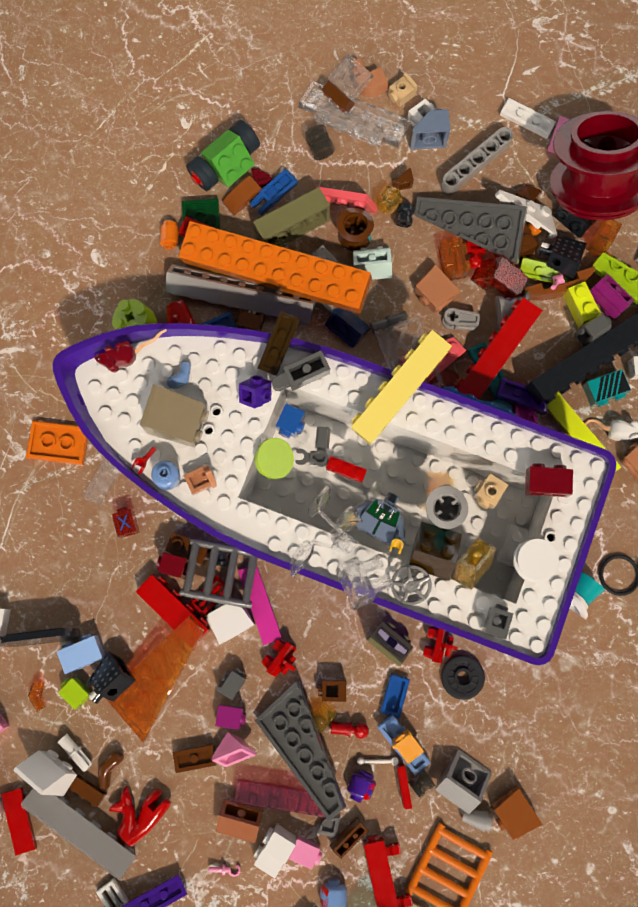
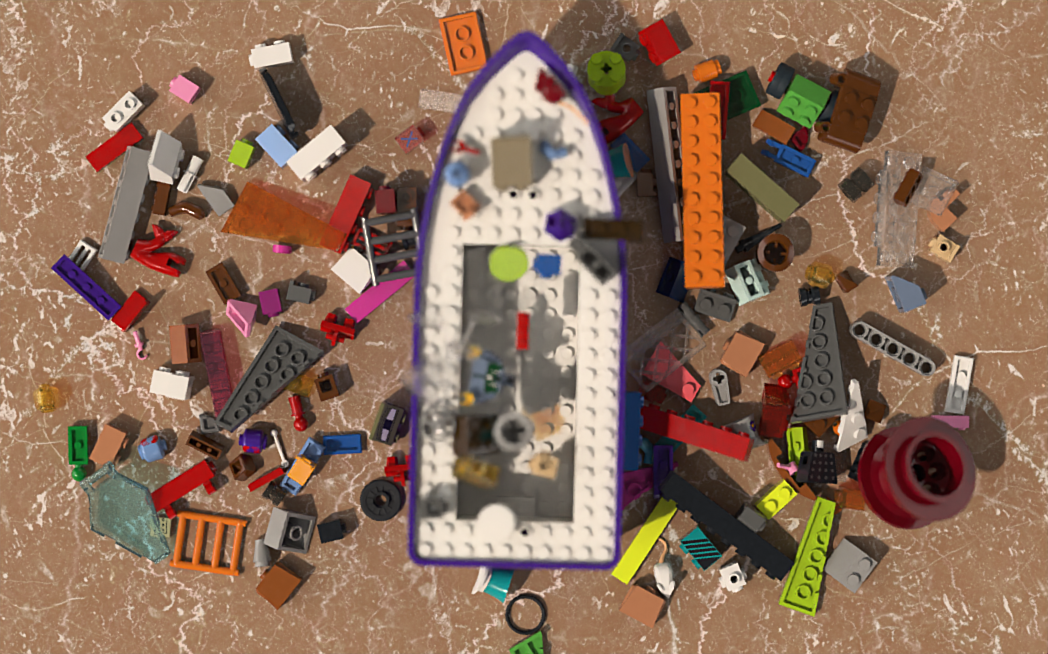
camera: 65 degrees right, 10 degrees up
(35, 695) = (227, 117): clear orange arm -> none
(103, 616) = (317, 154): none -> white brick
(109, 734) = (217, 198): none -> light grey slope
(110, 678) = (265, 182): black torso -> none
(113, 296) = (618, 46): none -> dark grey brick
(126, 266) = (658, 42): none -> red brick
(182, 686) = (282, 249): none -> dark pink tile
(187, 866) = (130, 311): none -> red panel
(255, 119) = (851, 111): none -> reddish brown container
(306, 852) = (179, 411): bright pink brick -> none
(320, 456) = (524, 301): dark grey bar -> none
(337, 249) = (748, 243): none -> black piece
(349, 199) = (802, 231): coral wing -> none
(382, 299) = (715, 305): none -> dark grey bracket
(384, 806) = (242, 467): none -> reddish brown slope
(401, 387) = (609, 354): light yellow brick -> none
(419, 111) = (919, 270): white brick -> none
(478, 737) = (331, 530): none -> black brick
(549, 481) = (571, 513): dark red brick -> none
(611, 296) = (792, 524): magenta brick -> none

